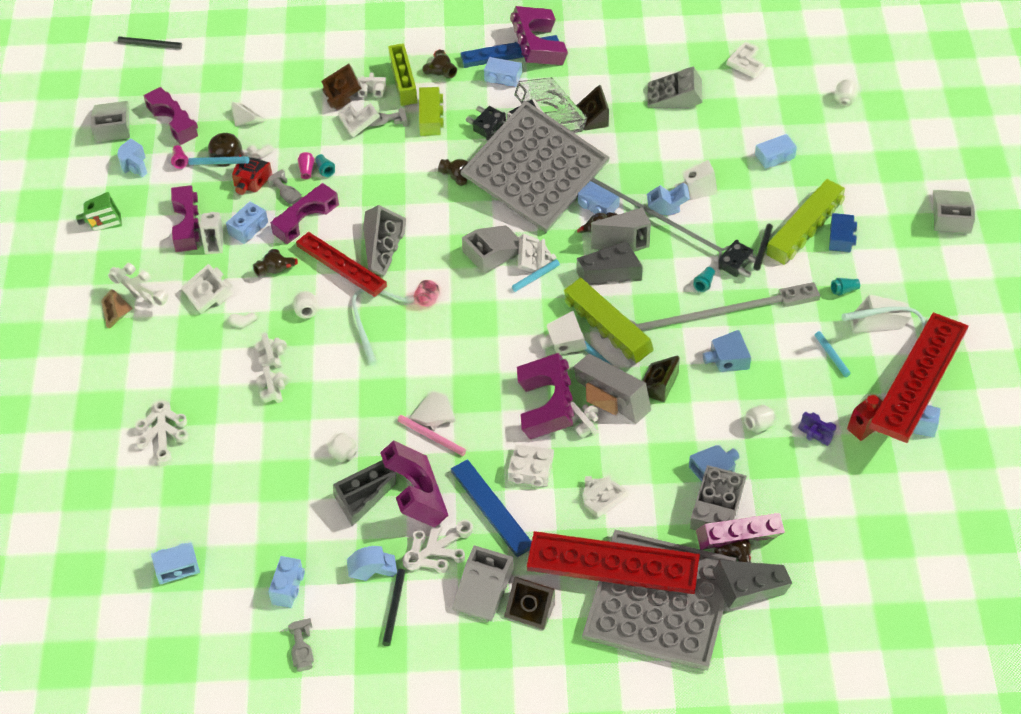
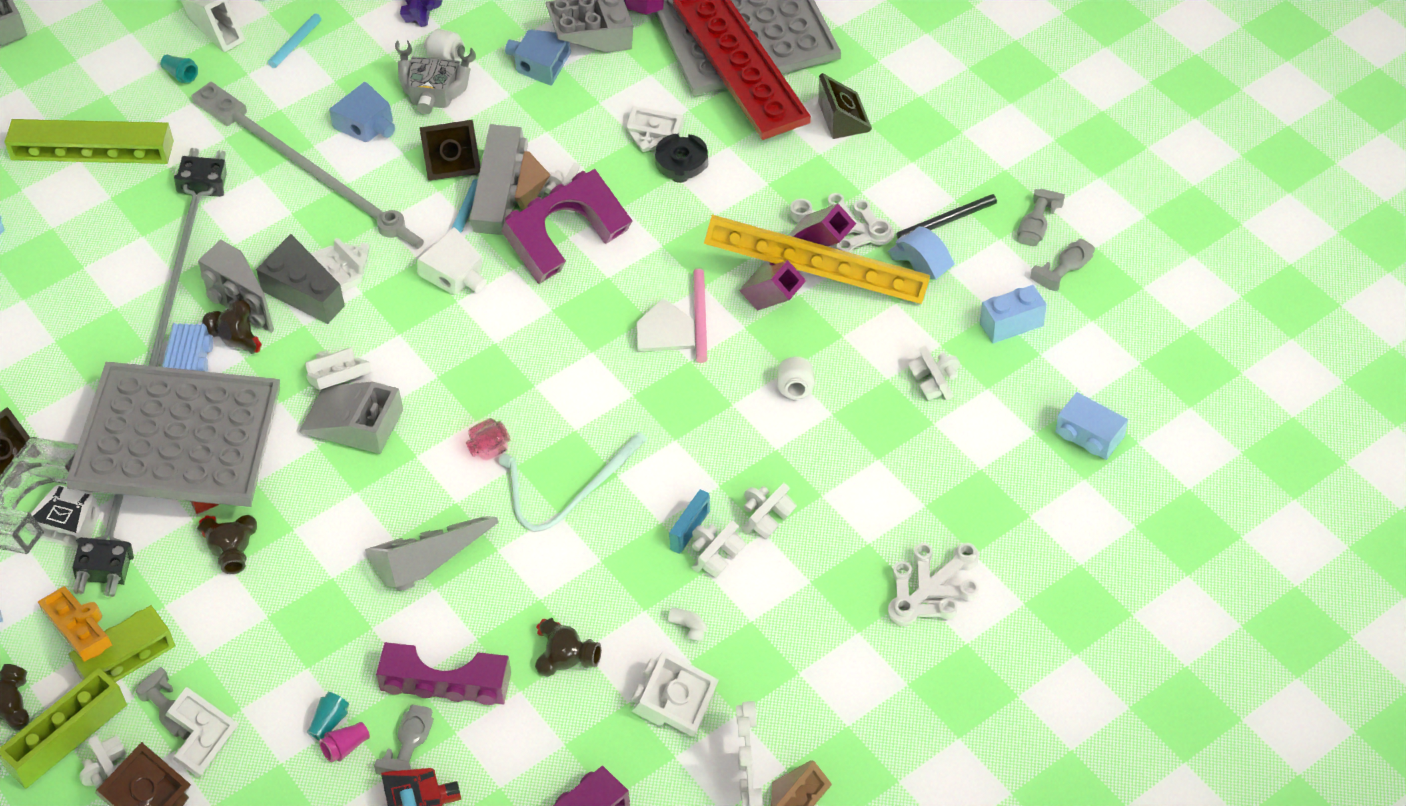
camera: 125 degrees left, 0 degrees up
(209, 226) = (567, 758): white torso -> none
(247, 222) = (514, 734): light blue brick -> none
(284, 516) = (944, 367): none -> white hips
(296, 348) = (689, 520): none -> dark azure tile
(305, 304) = (610, 558): white head -> none
(341, 264) = (507, 568): red plate -> none
(347, 651) = (1034, 225): none -> light grey piece
(363, 490) = (836, 315): dark grey wedge -> none
(384, 515) = (817, 259): none -> yellow plate
(452, 93) = (76, 622): none -> light orange hinge
(483, 583) = (853, 152): light grey slope -> none
(492, 508) = (754, 200): blue tile -> none
(530, 465) = (667, 202): white plate -> none
(537, 274) = (373, 357): medium azure bar -> none
(562, 503) = (681, 168): none -> black plate
(608, 320) = (402, 229): lime brick -> none
(615, 291) = (344, 262): none -> white slope
(667, 202) = (140, 279): light blue brick -> none
(700, 180) = (86, 261): white torso -> none
(703, 281) = (259, 188): teal cone -> none
(734, 396) = (433, 80): none -> light grey torso
(763, 246) = (165, 156): black bar -> none
(841, 232) = (89, 101): blue brick -> none

